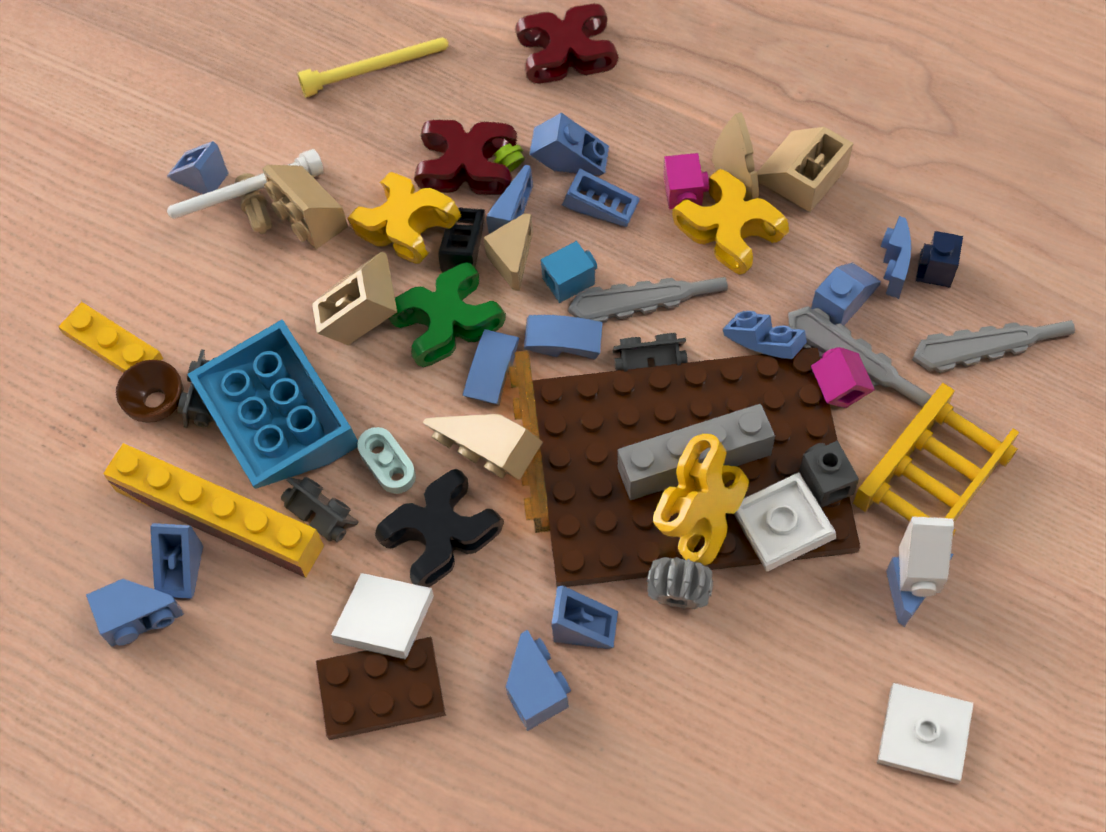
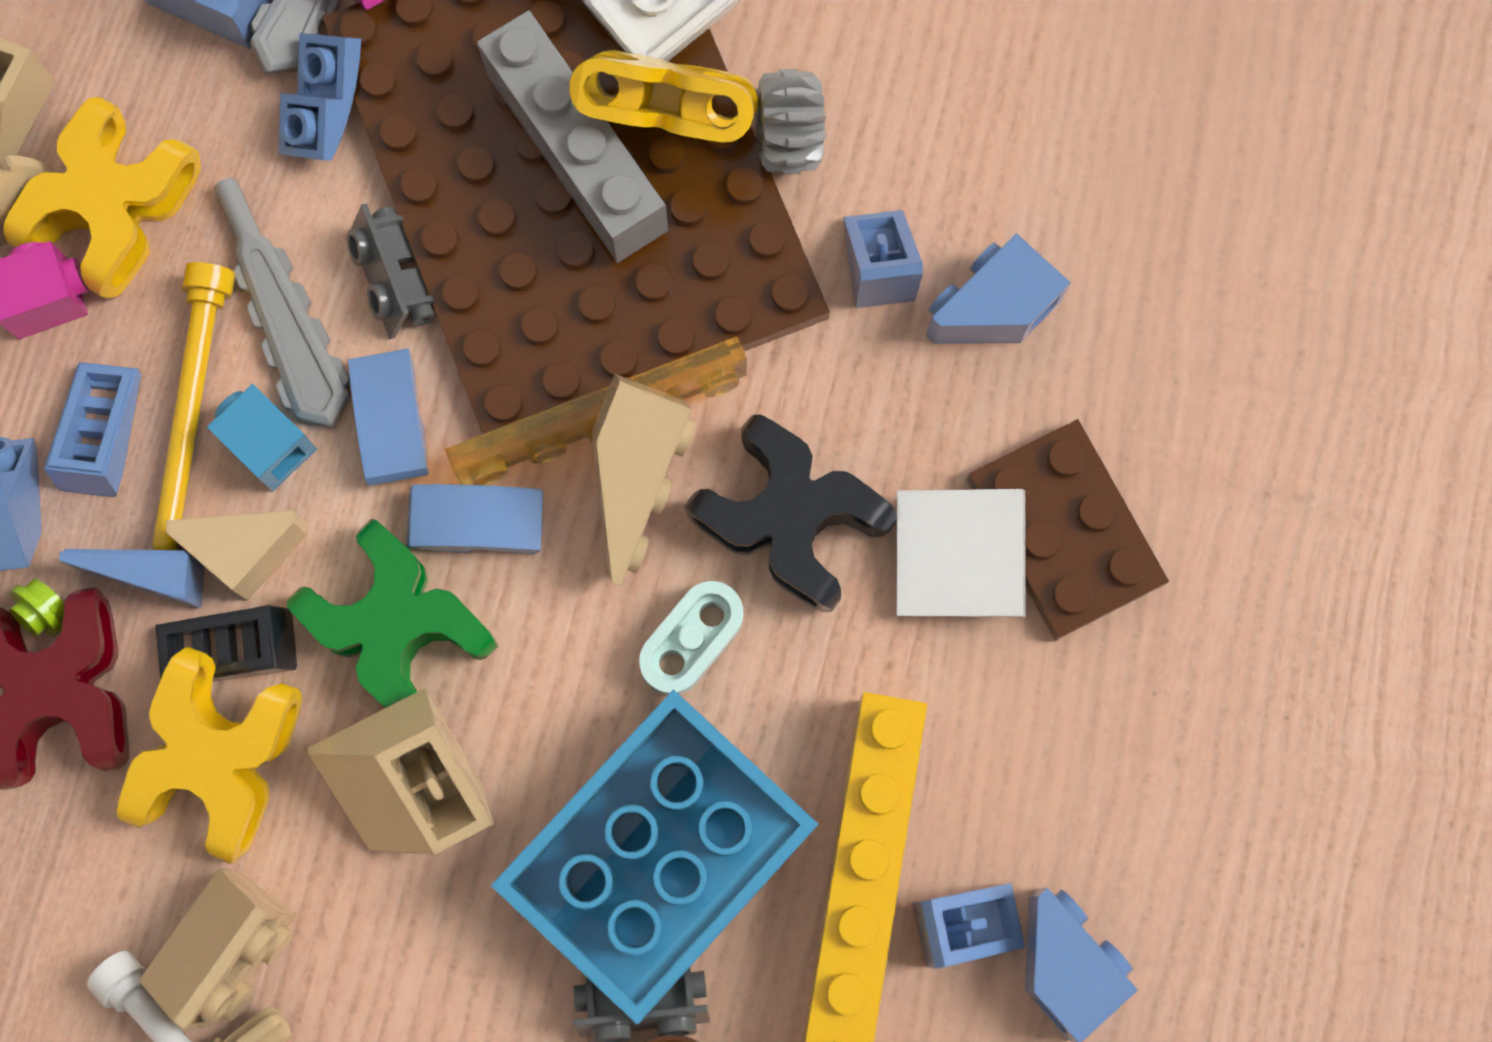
camera: 110 degrees left, 15 degrees up
(330, 514) = (812, 695): dark grey hinge -> none
(662, 262) = (206, 291): none -> yellow piece

